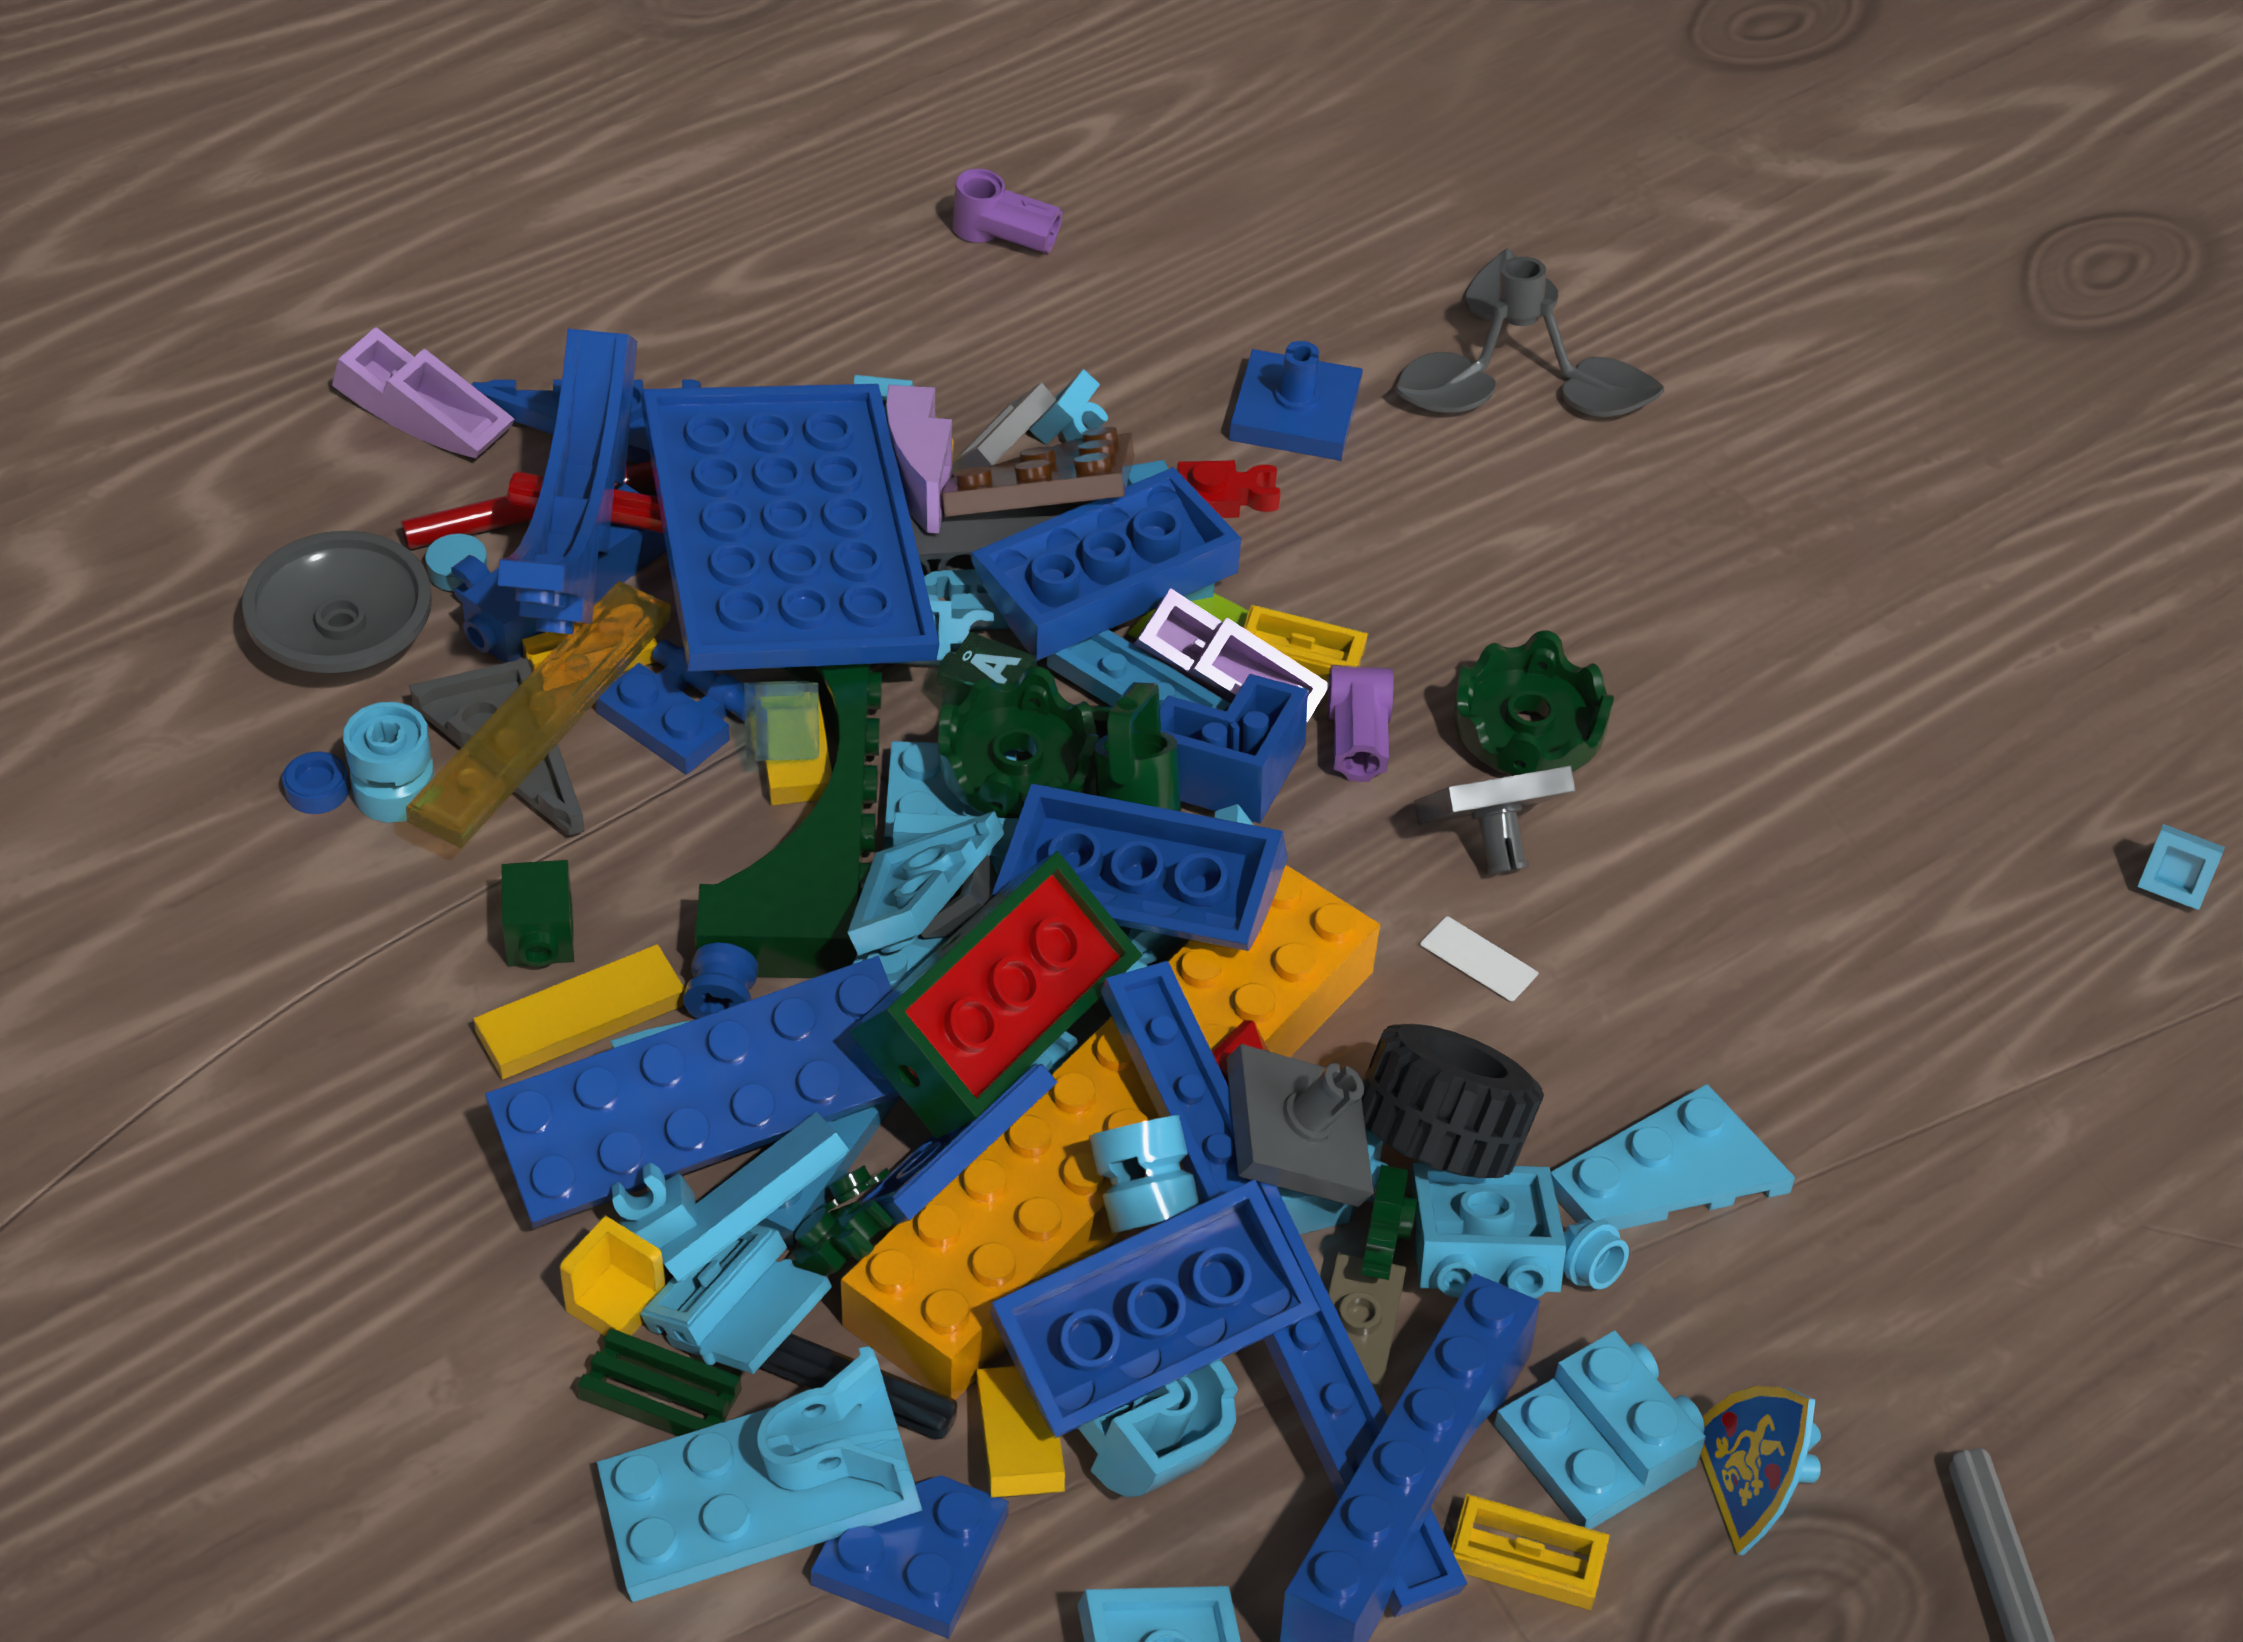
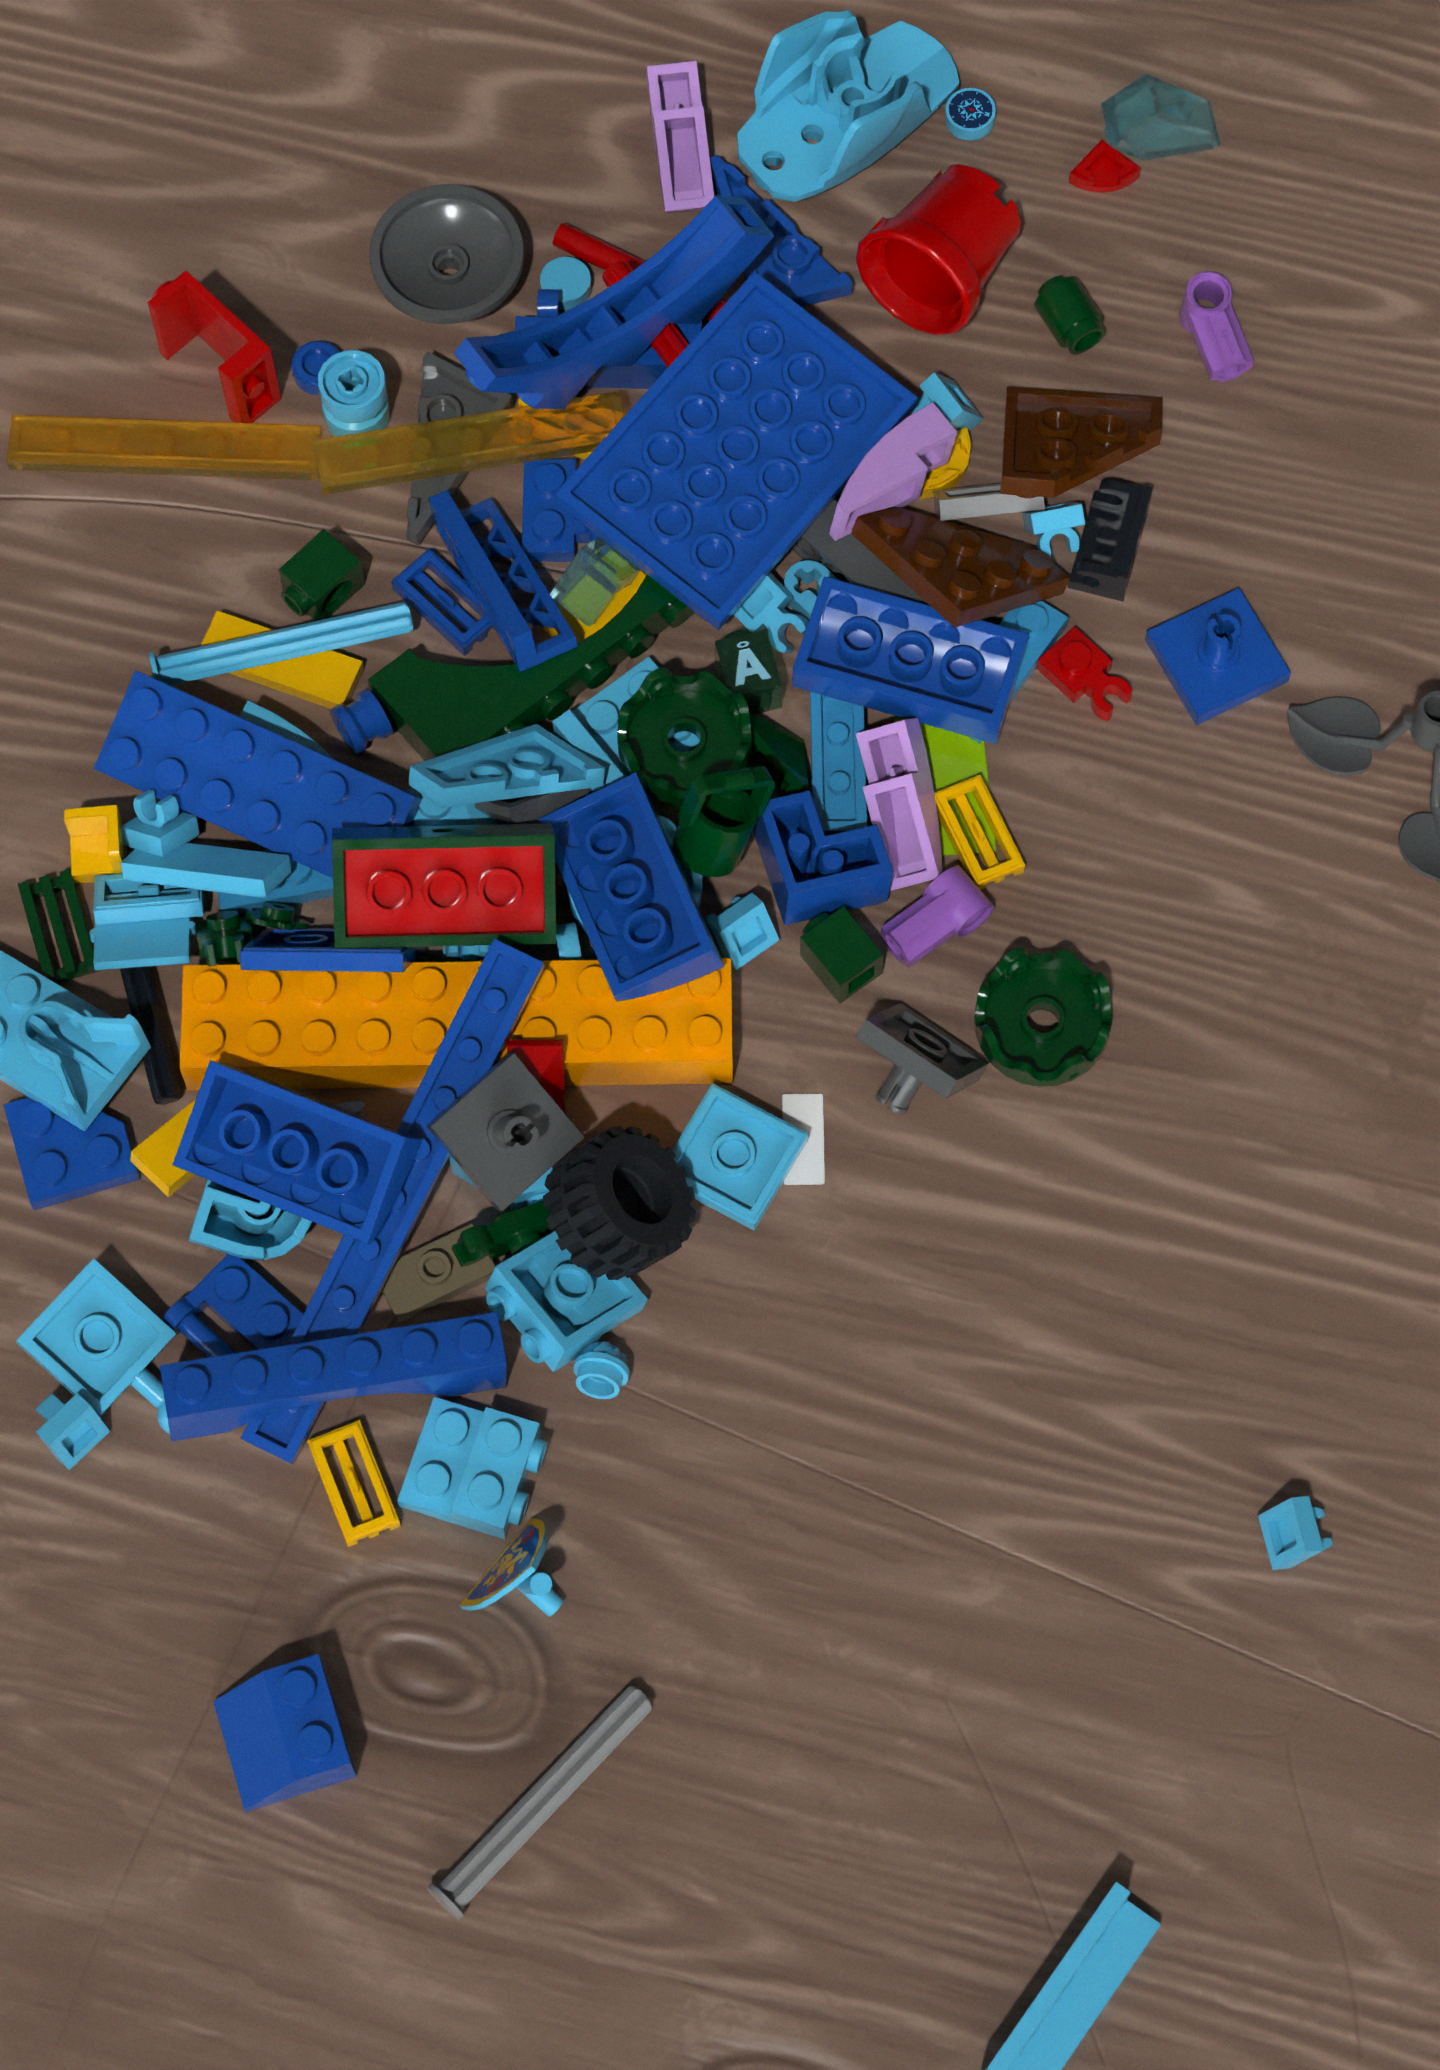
camera: 55 degrees right, 20 degrees up
(214, 805) = (248, 375): none -> red panel
(244, 953) = (162, 447): none -> clear yellow tile
(525, 282) = (844, 94): none -> medium azure piece
(573, 984) = (282, 644): none -> medium azure axle
(630, 229) = (970, 114): none -> tile
(665, 857) = (474, 630): none -> blue tile
(703, 782) = (494, 588): none -> blue fence
(751, 303) = (939, 251): none -> red piece
(780, 130) = (1158, 120): none -> clear light blue slope
(781, 191) = (1104, 170): none -> red tile
(889, 282) = (1069, 314): none -> dark green brick
(1005, 348) = (1071, 436): none -> reddish brown plate
(1123, 1156) = (381, 1079): medium azure wheel -> none
(1132, 388) = (1110, 539): none -> black hinge
(1247, 1512) = (242, 1302): none -> blue plate
(1330, 801) = (840, 953): none -> dark green brick
(1464, 993) = (737, 1155): none -> medium azure plate
(1671, 1162) = (726, 1370): medium azure wing -> none

